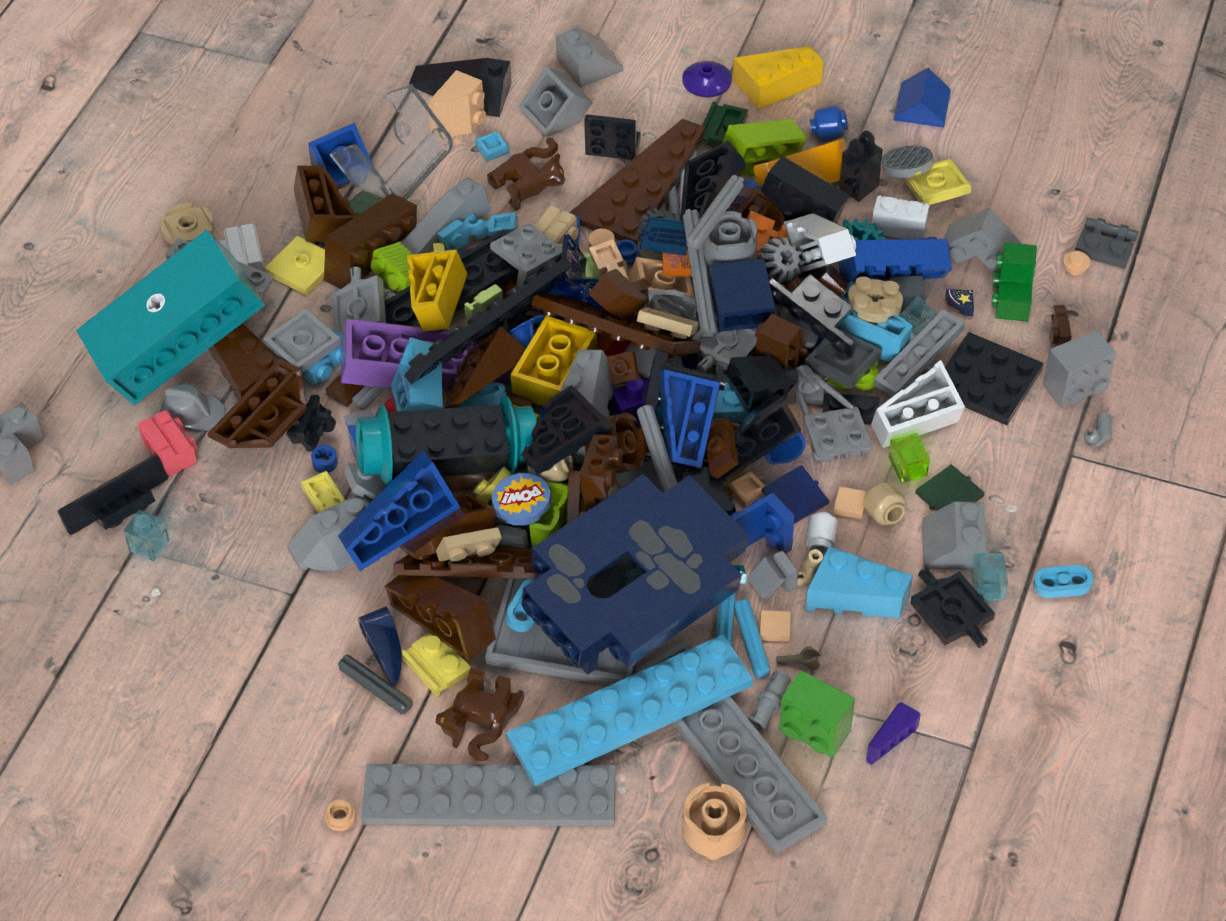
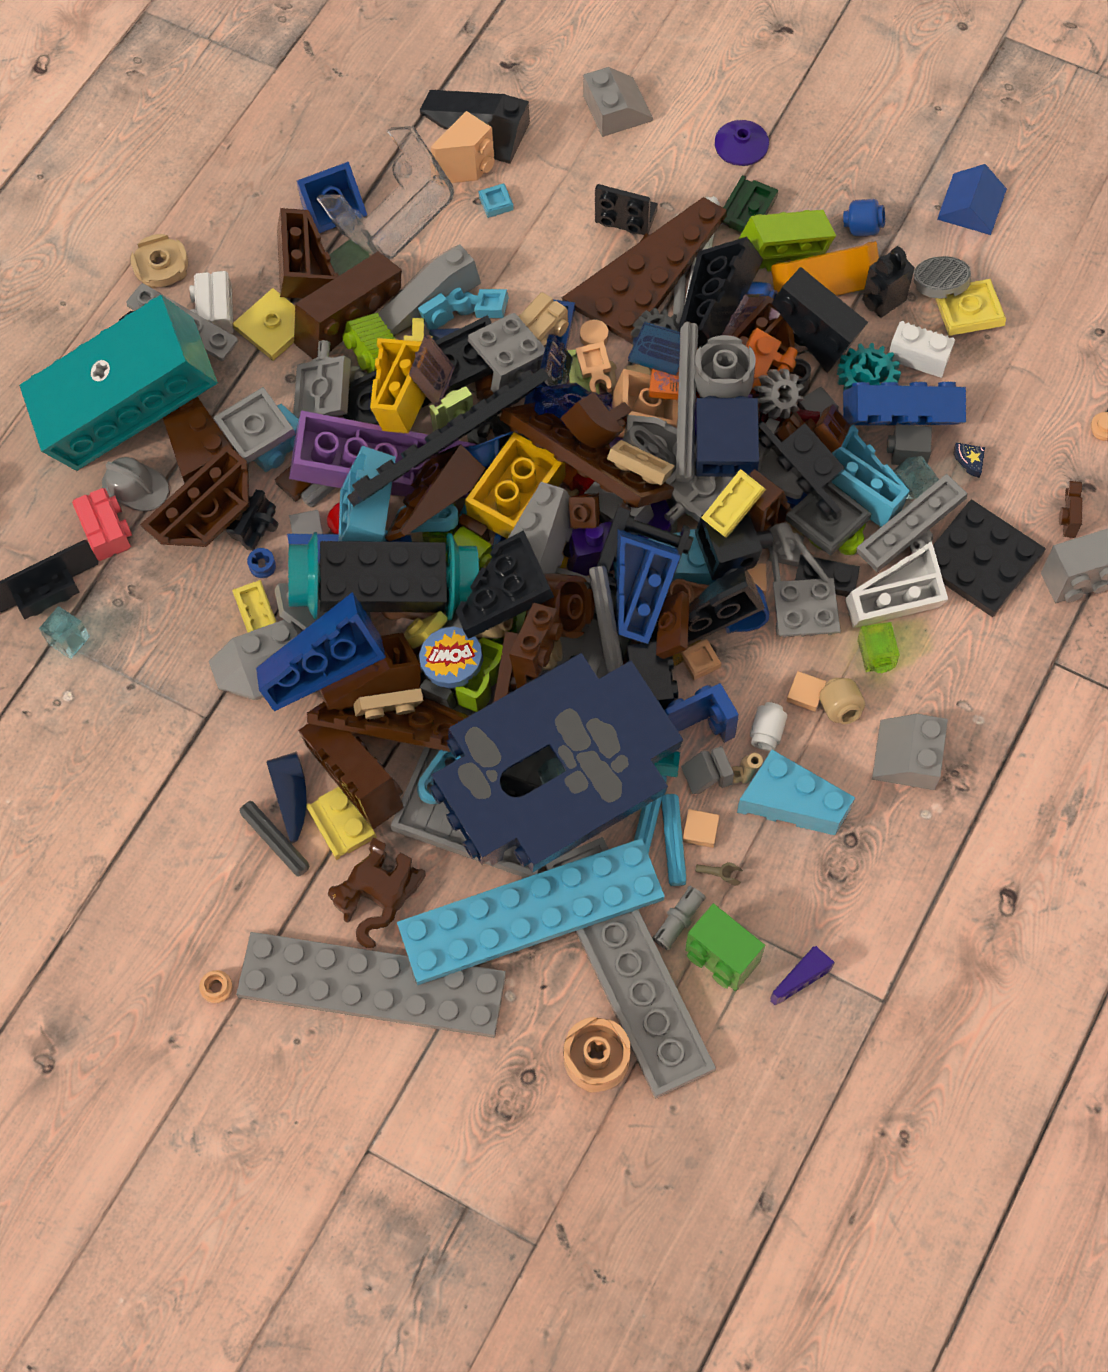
camera: 10 degrees right, 15 degrees up
(462, 273) = (431, 370): none -> piece
(526, 176) = (526, 247): reddish brown animal -> none
(555, 102) = (571, 155): light grey slope -> none
(628, 250) = (618, 351): blue plate -> none
(714, 212) = (712, 336): light grey axle -> none
(758, 342) = (733, 503): none -> light yellow plate
(777, 74) = (818, 149): yellow wedge -> none
(798, 493) = (748, 675): clear blue piece -> none
(820, 241) = (825, 378): white wedge -> none
(866, 290) = (877, 441): tan plate -> none
(947, 488) = (915, 690): clear green piece -> none
(952, 608) = (892, 835): black plate -> none
(978, 236) = (1007, 387): light grey brick -> none
(989, 576) = (938, 804): clear light blue brick -> none
(1014, 281) = (1032, 446): green brick -> none
(1061, 581) = (1016, 818): medium azure plate -> none
(1102, 433) = (1093, 644): light grey arm -> none

